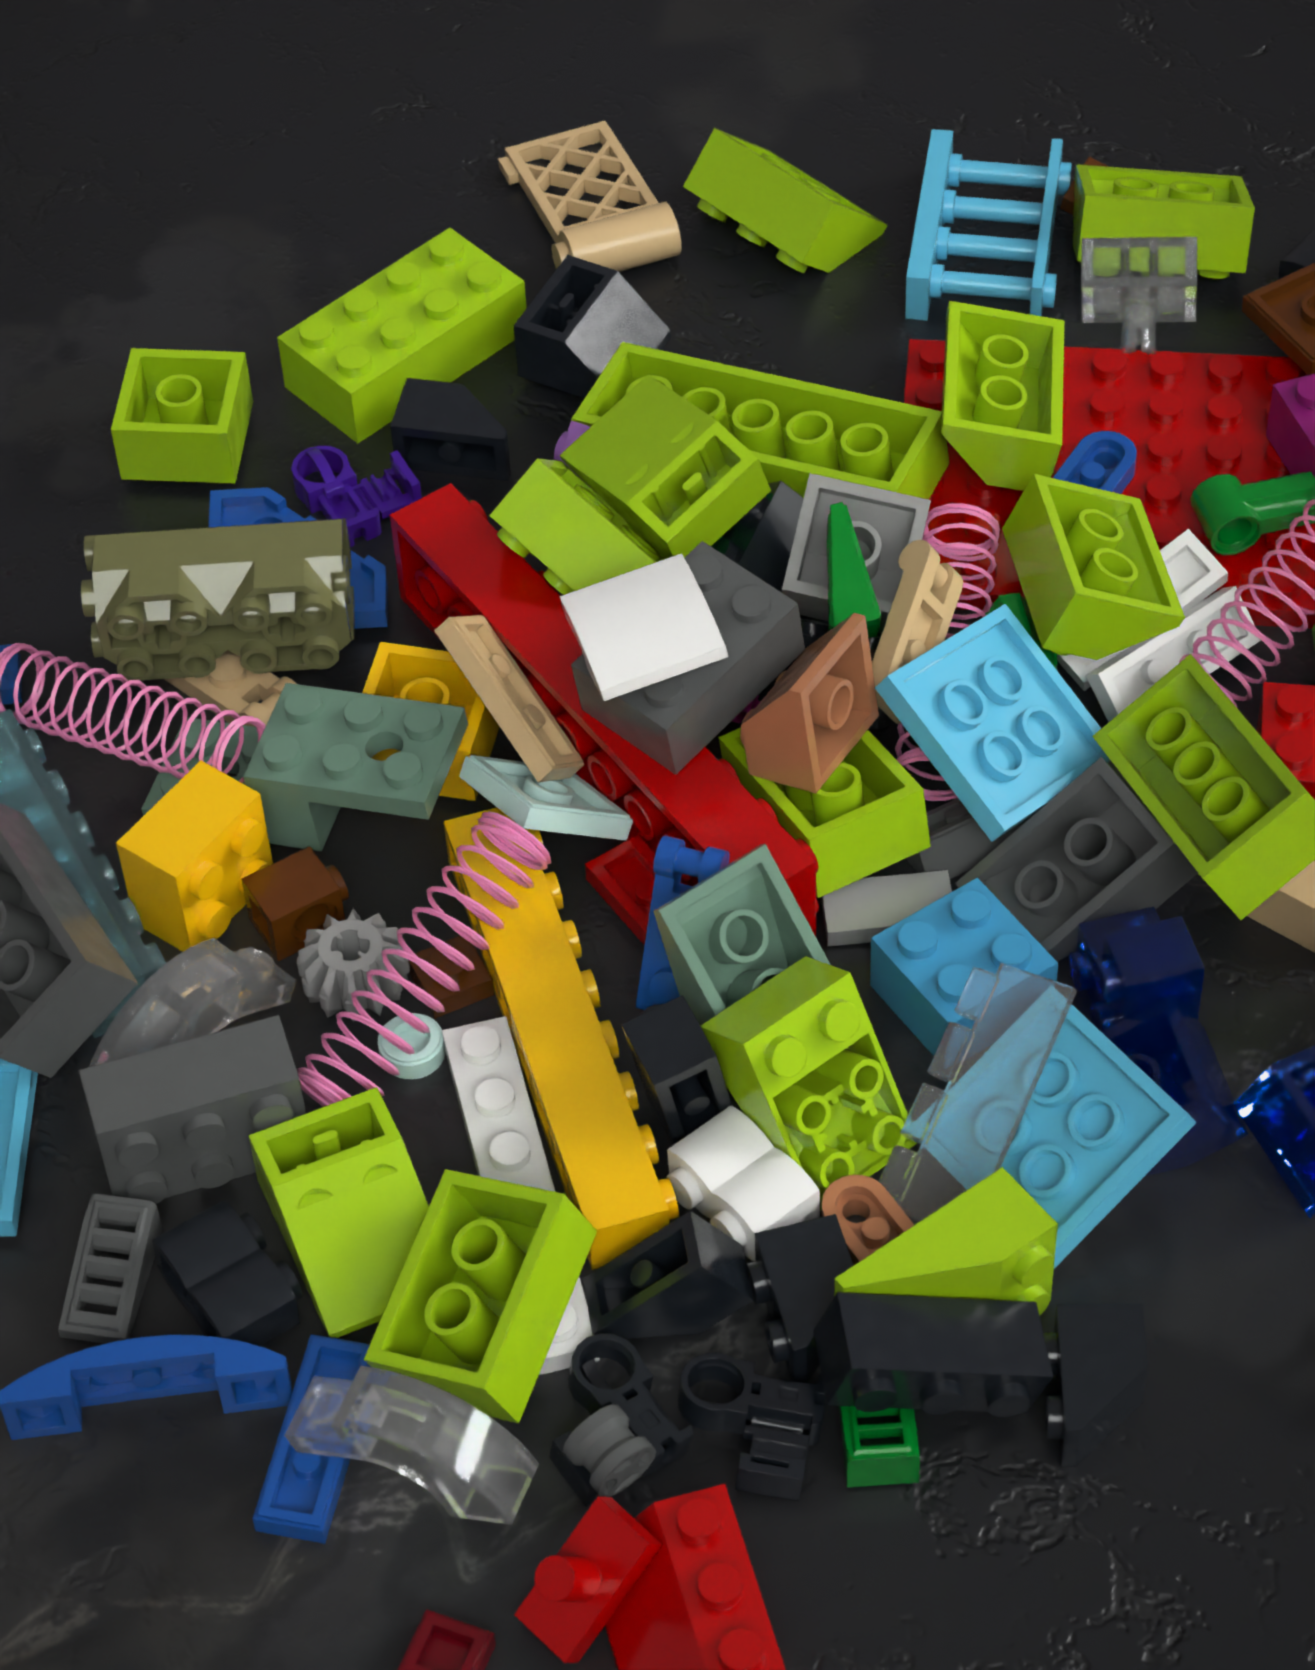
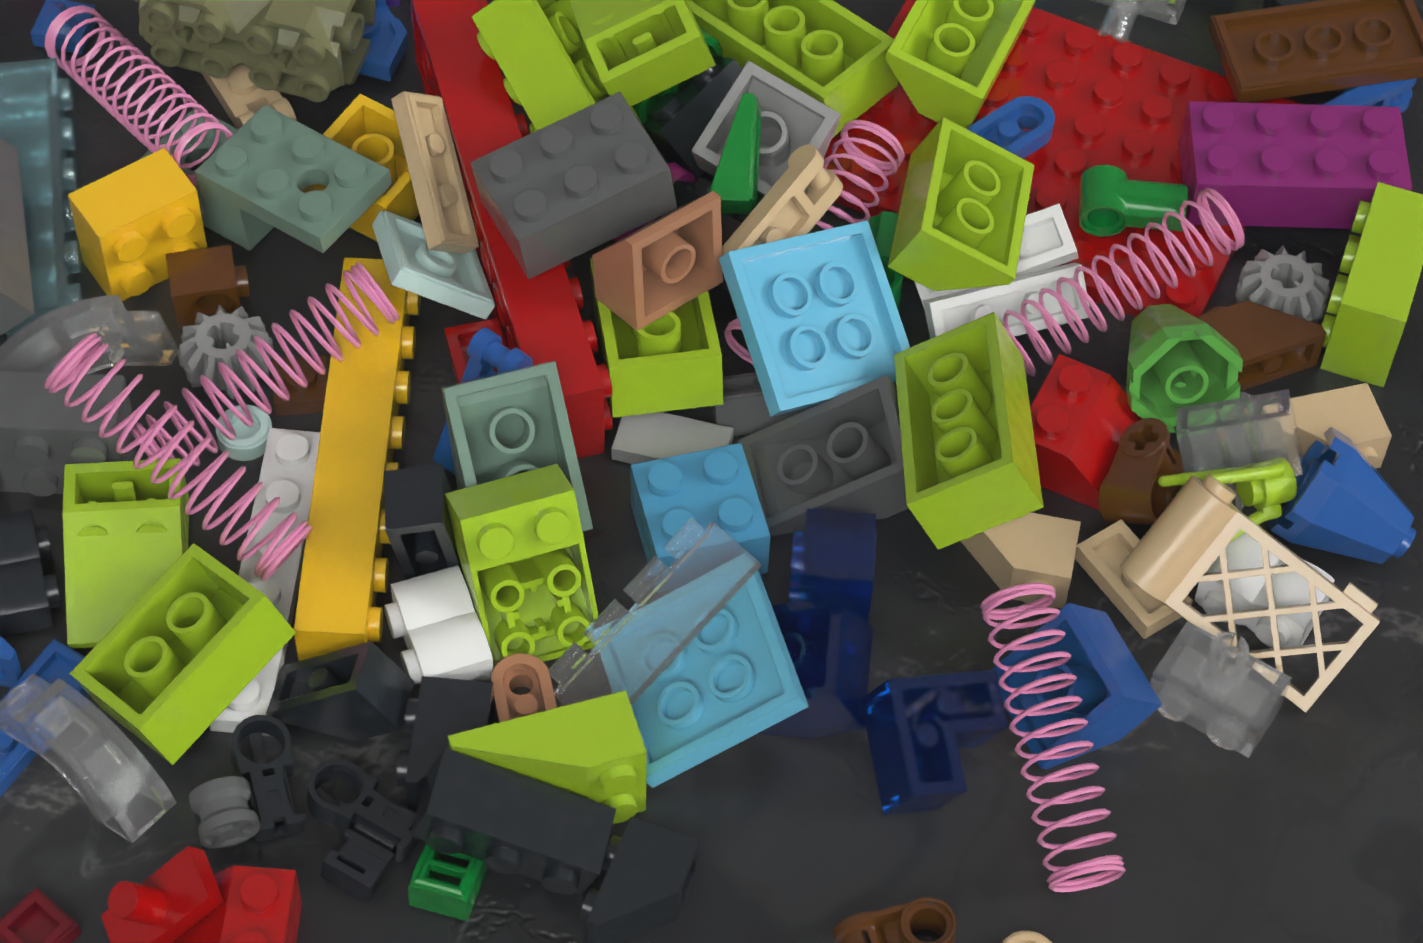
camera: 15 degrees right, 5 degrees up
(546, 1126) = (74, 367): none -> bright pink piece
(643, 627) = (530, 150): white slope -> none

